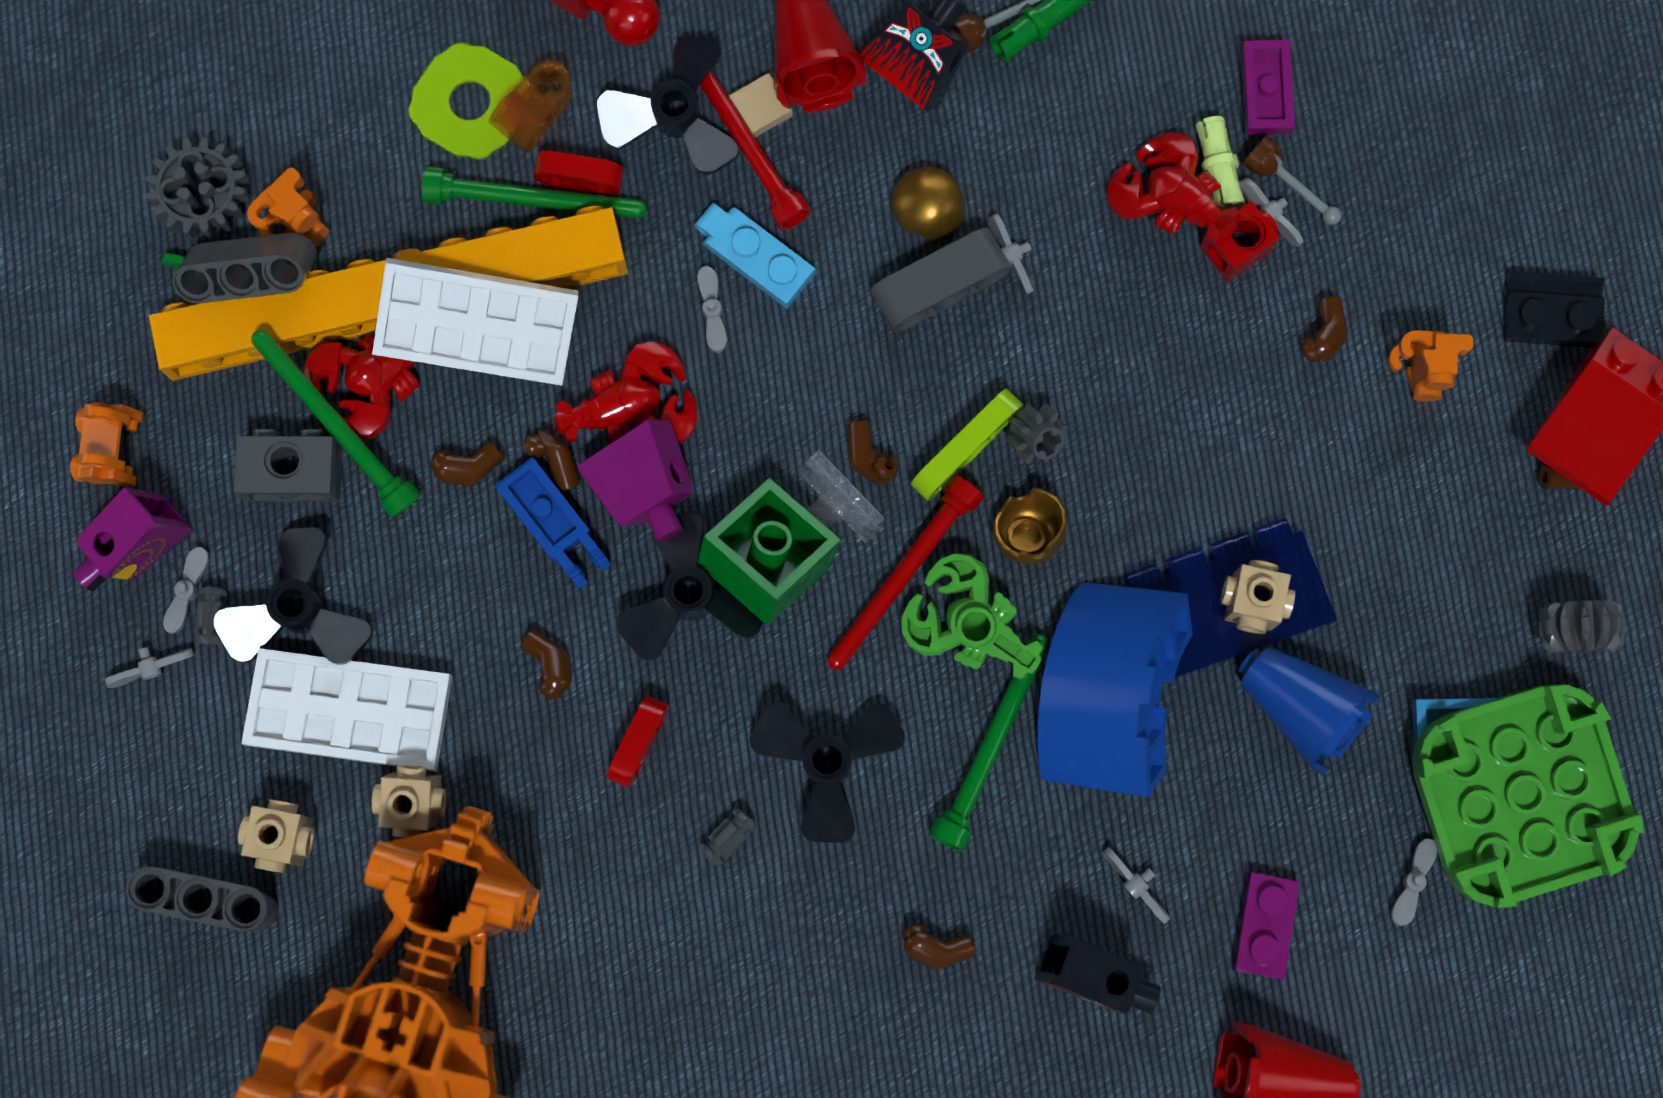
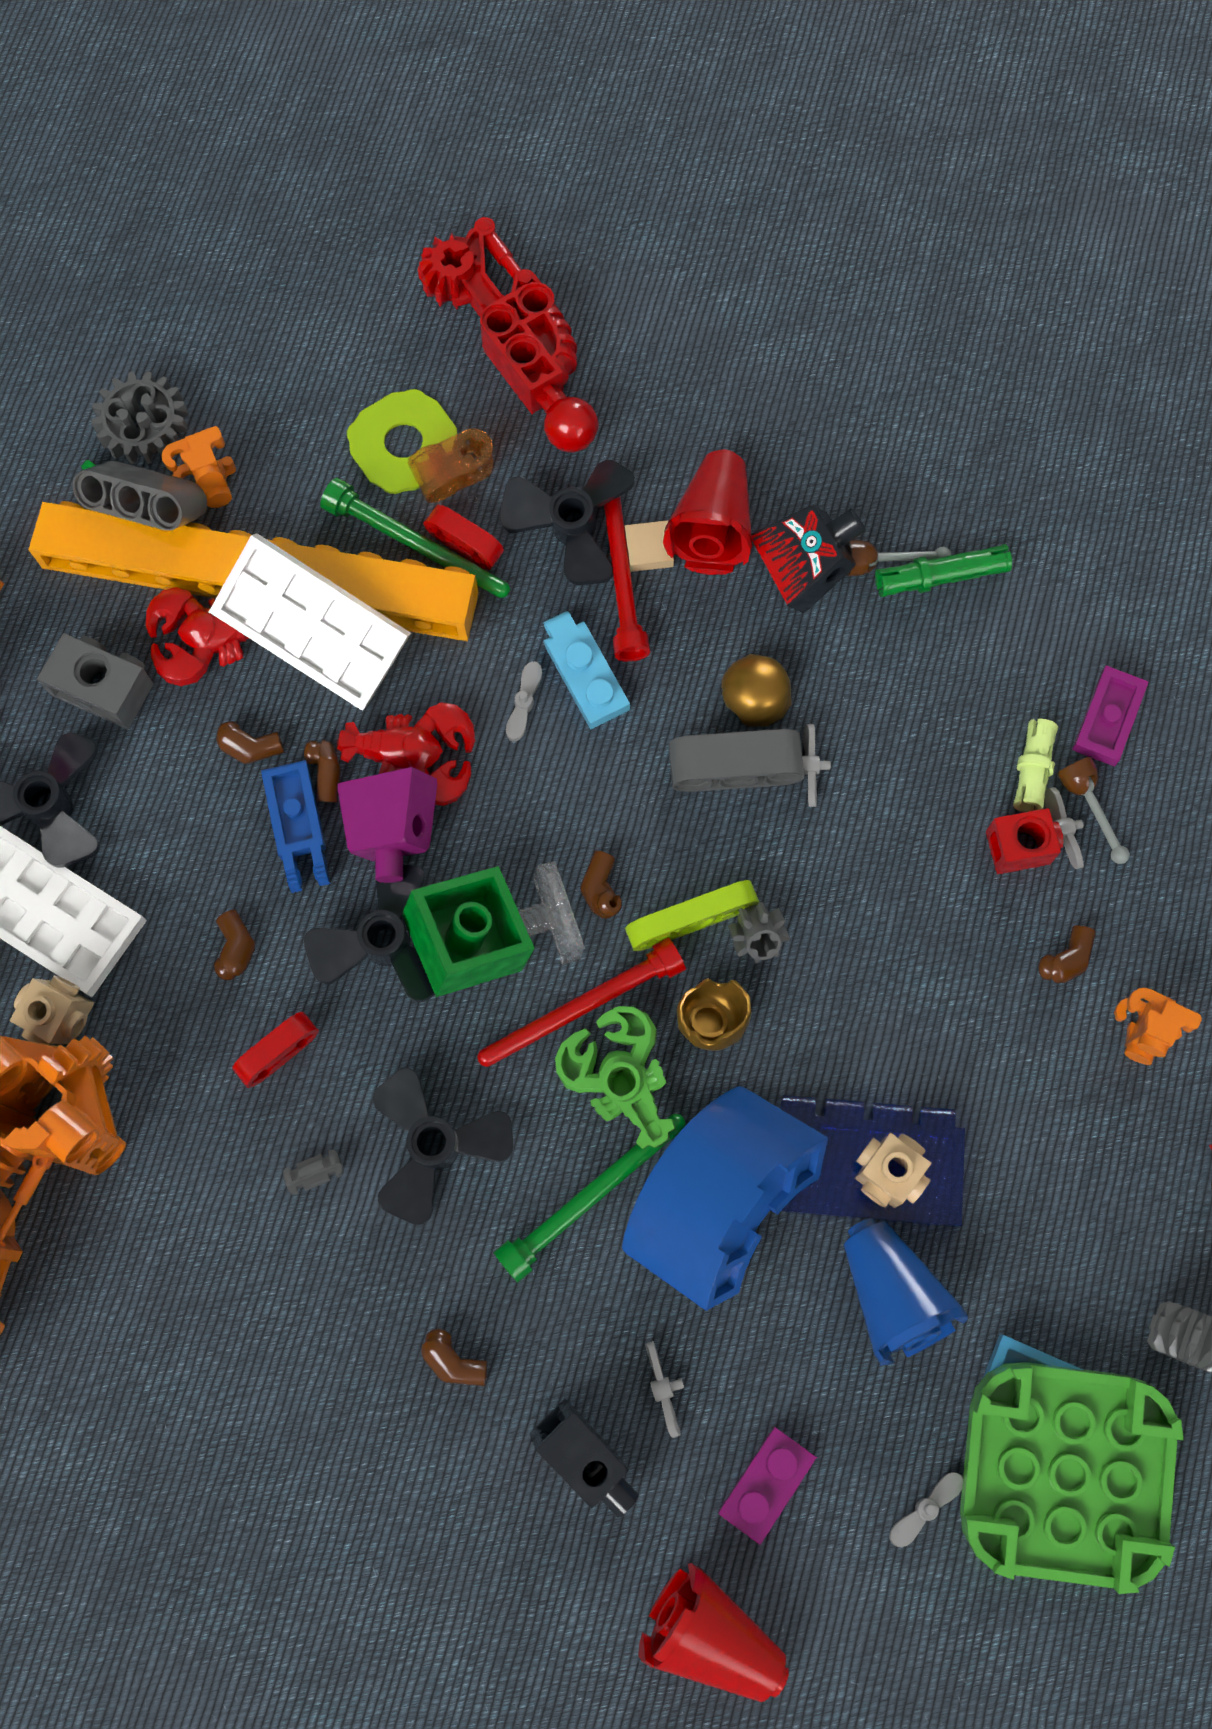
camera: 25 degrees right, 5 degrees down
(394, 492) = (174, 740): green piece -> none
(1171, 189) = (981, 768): red animal -> none

